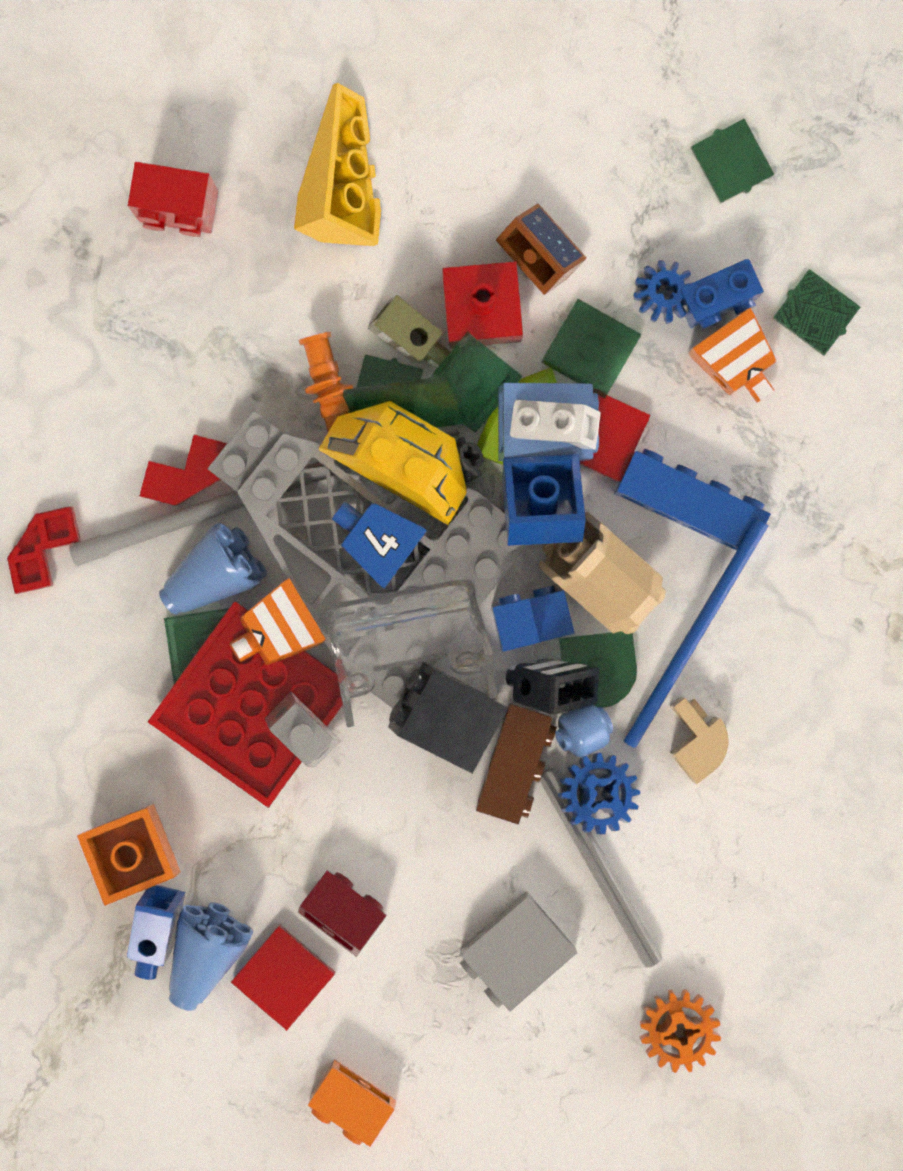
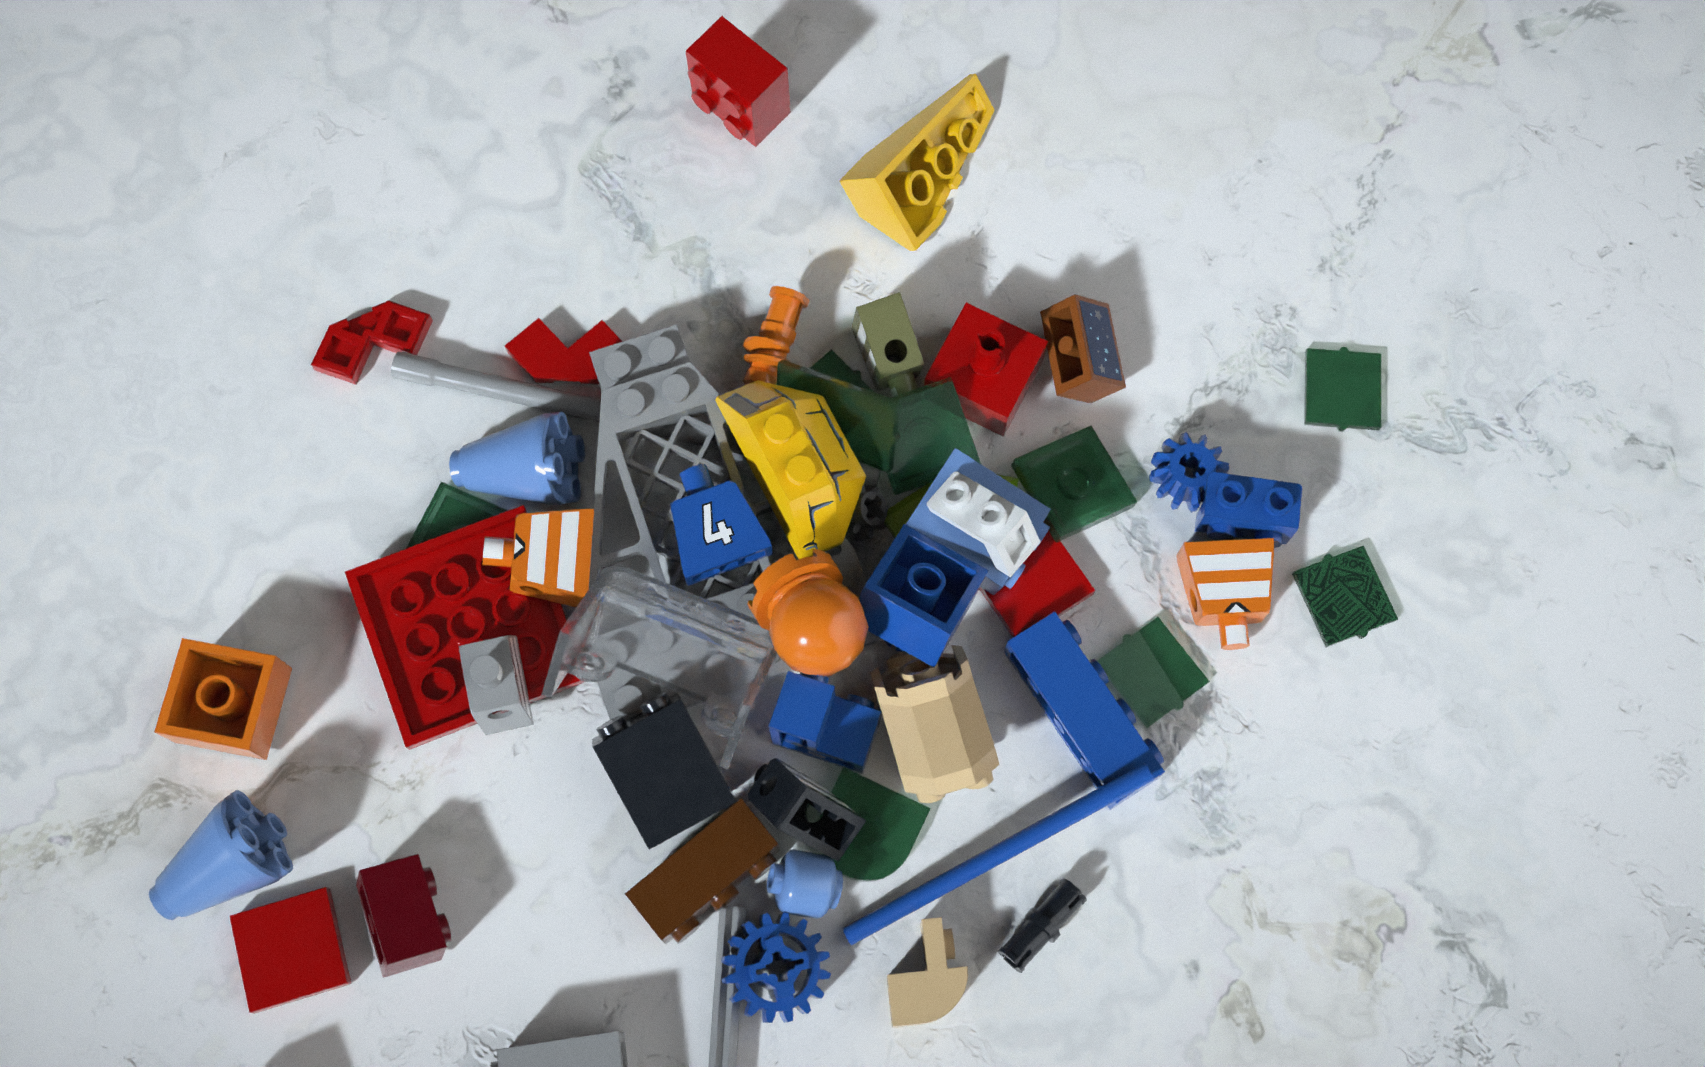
camera: 30 degrees right, 15 degrees down
(154, 929) = (186, 796): torso -> none
(488, 564) = (810, 614): none -> orange tile
(720, 445) = (1153, 672): none -> clear green piece
(749, 659) = (1042, 925): none -> black pin

